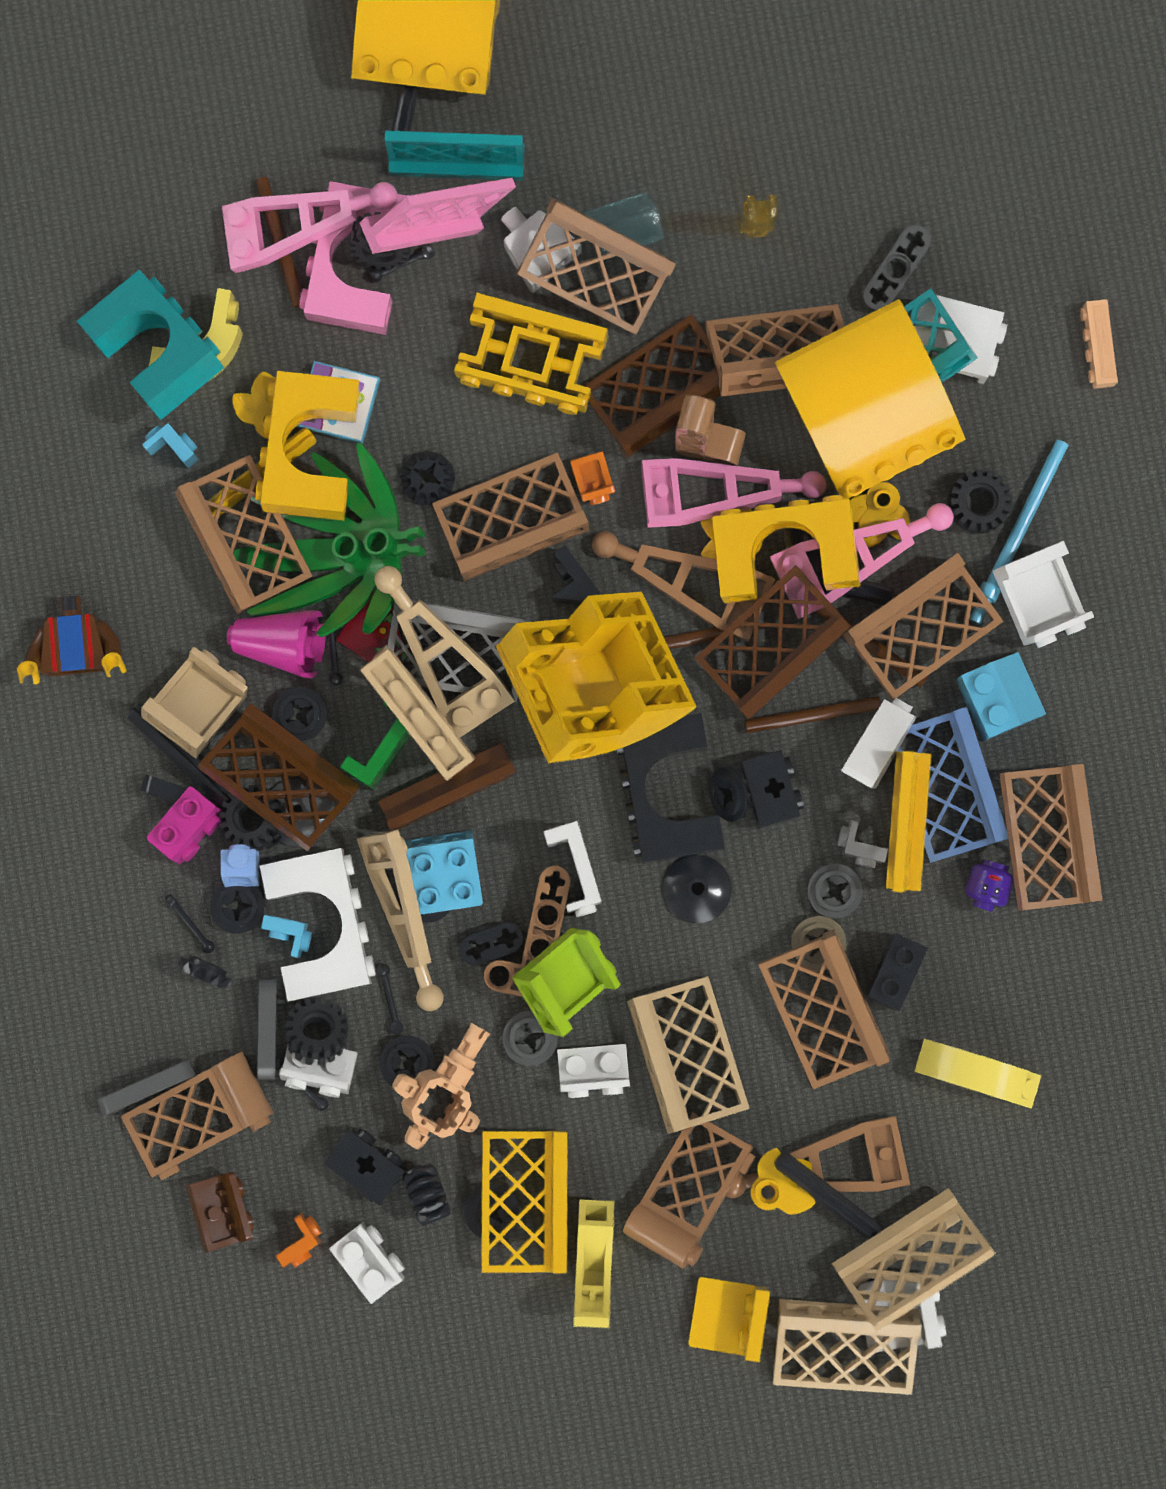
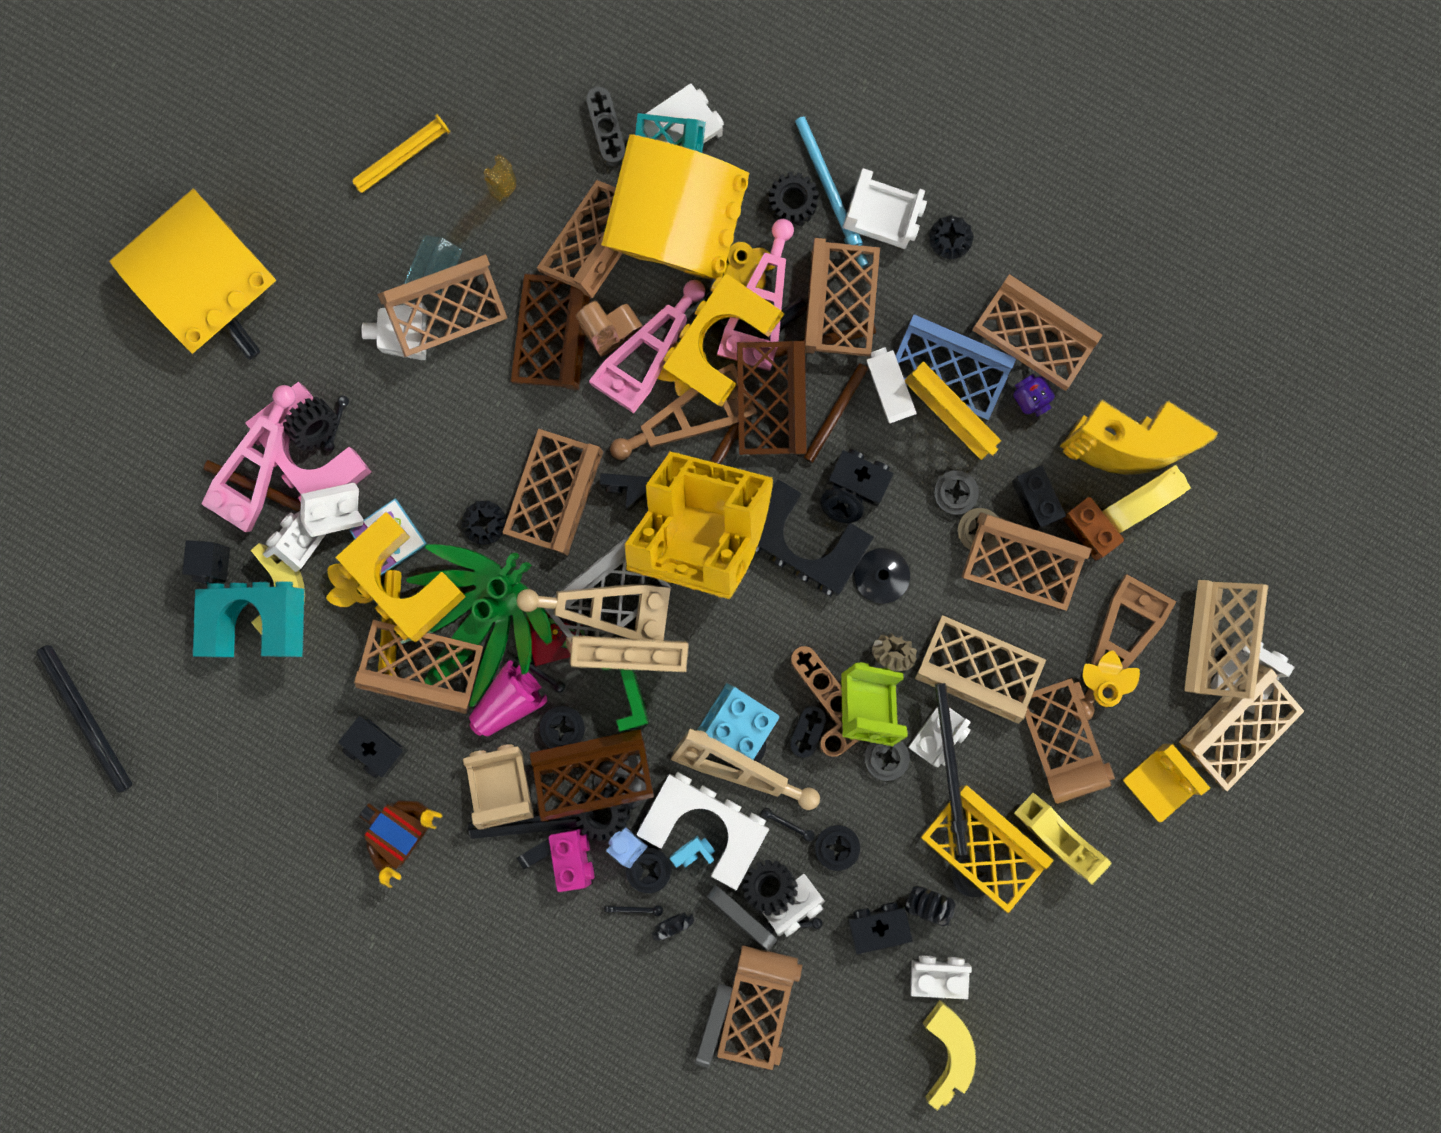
camera: 45 degrees left, 0 degrees up
(143, 572) = (366, 732): none -> black brick
(172, 257) = (205, 561): none -> black brick
(181, 445) = (329, 657): medium azure bracket -> none
(220, 1211) = (830, 1045): reddish brown bracket -> none
(263, 320) = (292, 543): none -> white bracket
(299, 1250) = (897, 1015): orange bracket -> none
(317, 328) = (330, 509): none -> white bracket
(327, 1318) = (961, 1054): none -> light yellow arch
(434, 216) = (324, 375): bright pink fence -> none
(437, 794) = (686, 684): reddish brown fence -> none
(452, 1075) = (871, 826): light nougat piece -> none
(455, 155) = (297, 331): teal fence -> none
(524, 1155) = (958, 823): none -> black bar
(538, 327) = (454, 371): yellow fence -> none
(571, 834) = (809, 633): white panel -> none
(592, 478) = (573, 420): orange bracket -> none
(625, 965) = (894, 660): none -> dark tan gear
(703, 104) = (400, 154): none -> yellow axle
(827, 1195) = (1141, 657): black axle -> none
(865, 854) = (950, 454): light grey bracket -> none
(911, 1047) = (1093, 528): none -> dark orange bracket
(1000, 696) = (923, 290): medium azure slope -> none
(1040, 1038) = (1135, 446): none -> yellow slope
(1058, 678) = (942, 245): none -> black gear
(1100, 344) = (759, 44): light nougat piece -> none

